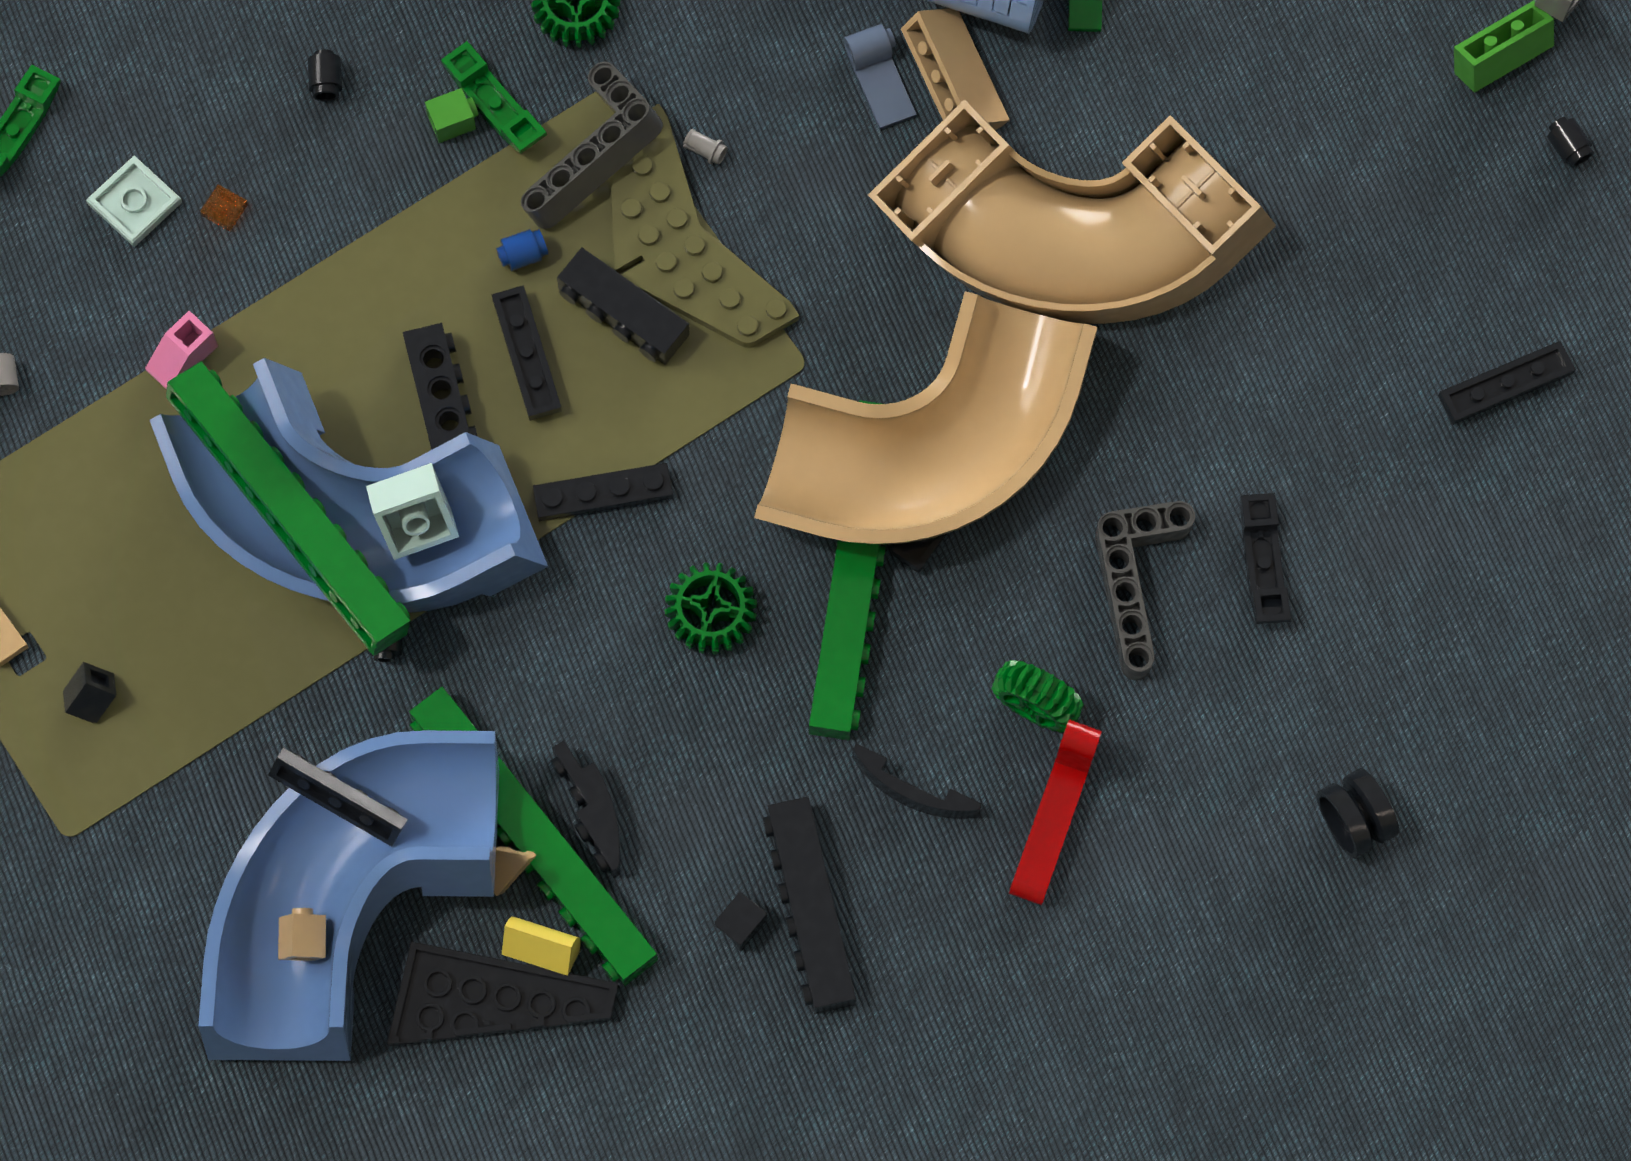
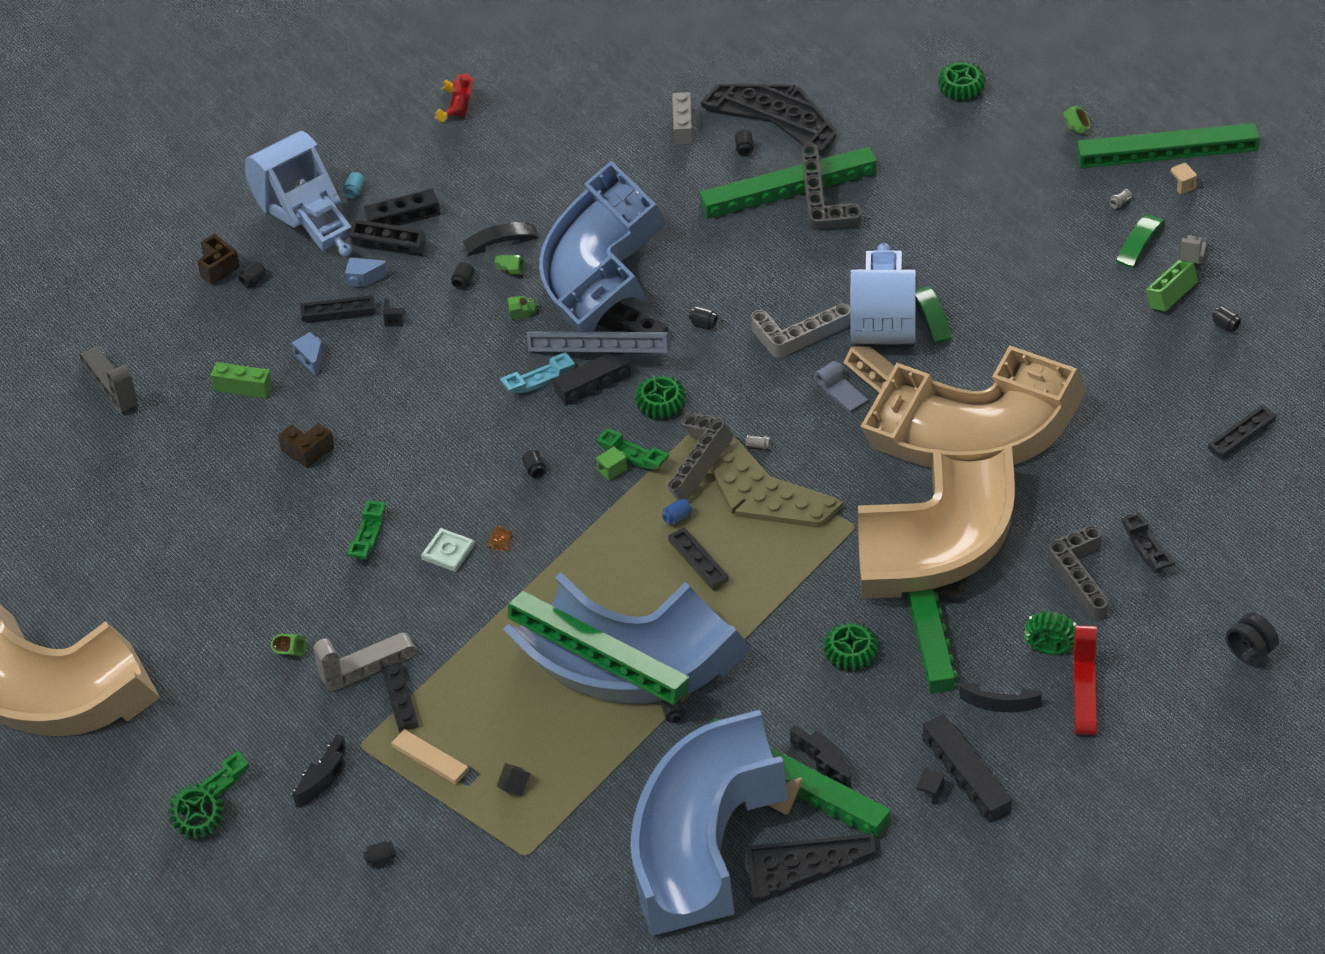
camera: 10 degrees left, 25 degrees down
(181, 348) = (498, 609): bright pink slope -> none
(302, 936) = (685, 850): tan brick -> none
(337, 796) = (682, 764): black plate -> none
(412, 511) = (668, 632): light aqua brick -> none
(422, 346) = (650, 580): black brick -> none
(540, 945) = (821, 825): light yellow brick -> none
(603, 492) = (767, 611): black plate -> none
(622, 306) = (743, 522): black brick -> none

